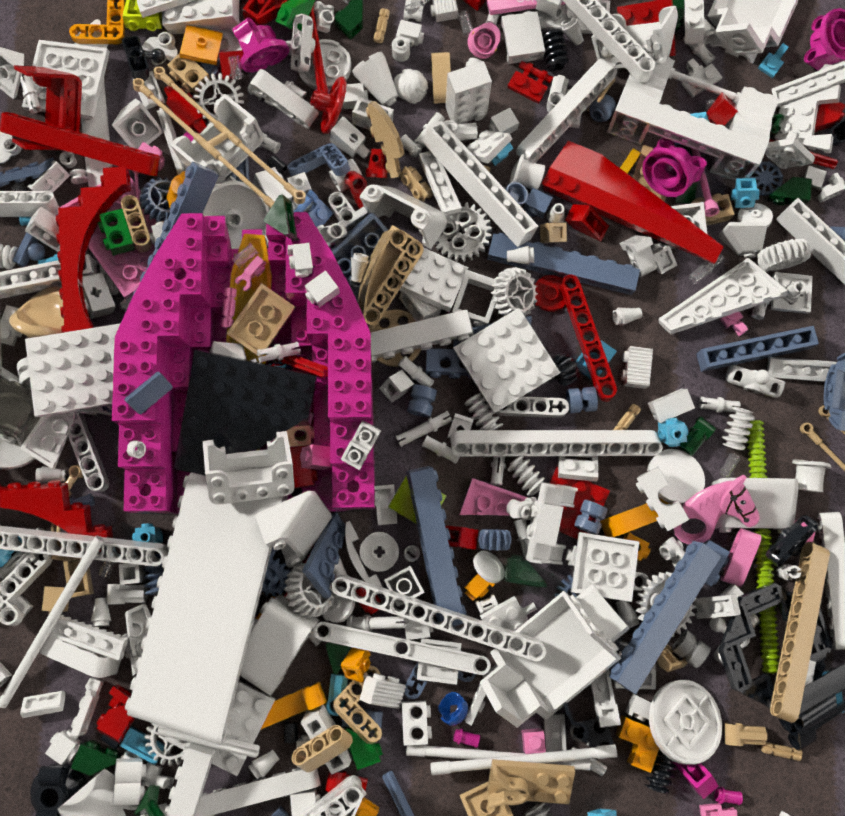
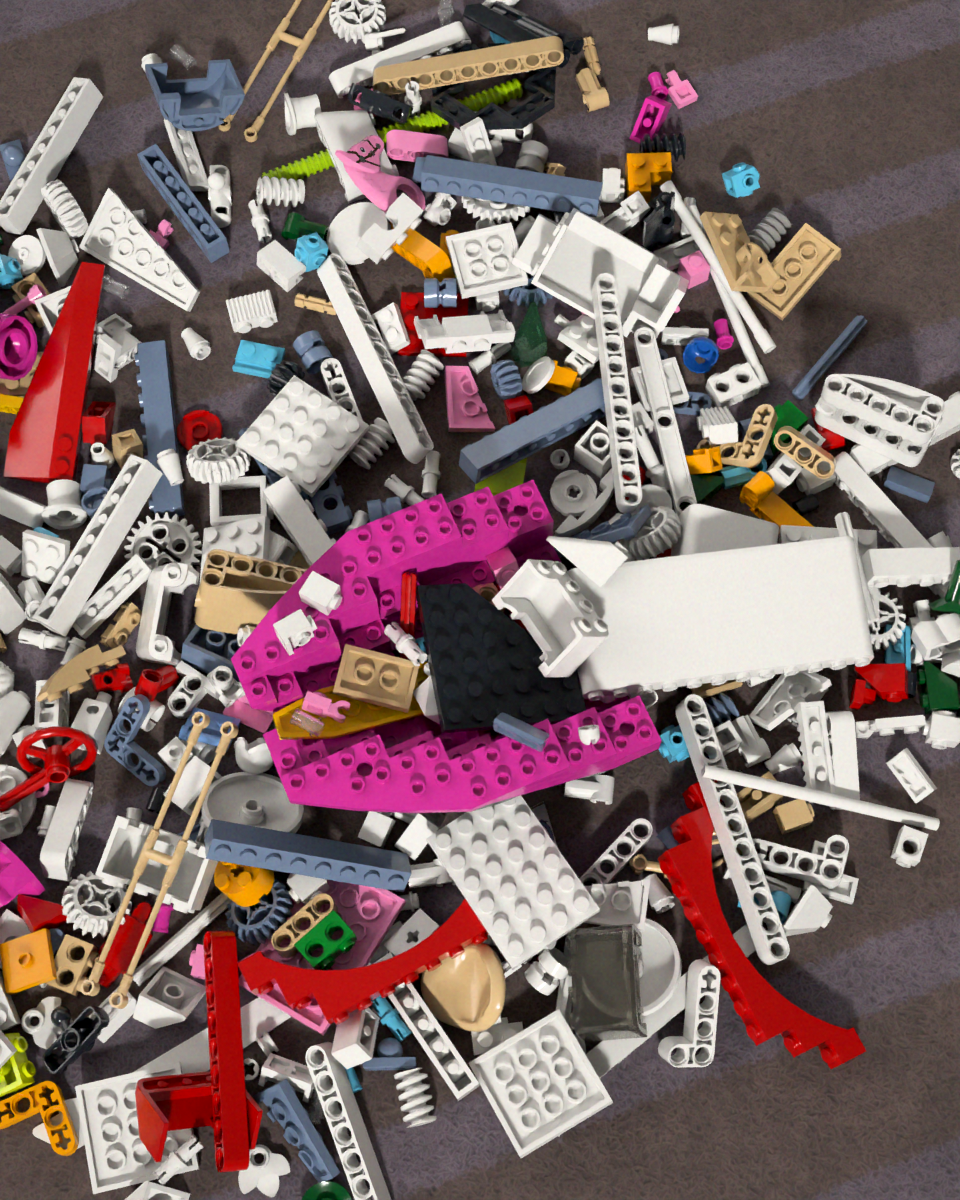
camera: 110 degrees left, 10 degrees down
(228, 307) = (376, 721): bright pink axle -> none
(235, 68) = (47, 897): clear pin -> none
(263, 764) = (857, 516): white cone -> none
(282, 217) = (253, 675): slope -> none
(361, 445) = (477, 500): white slope -> none
(462, 421) = (400, 469): white brick -> none
(497, 478) = (431, 407): white pin -> none
(520, 509) = (462, 362): white plate -> none
(588, 346) = (235, 377): red beam -> none
(685, 722) = (606, 141): white plate -> none
(729, 466) = (324, 190): clear pin -> none
(799, 286) = (97, 185): white plate -> none

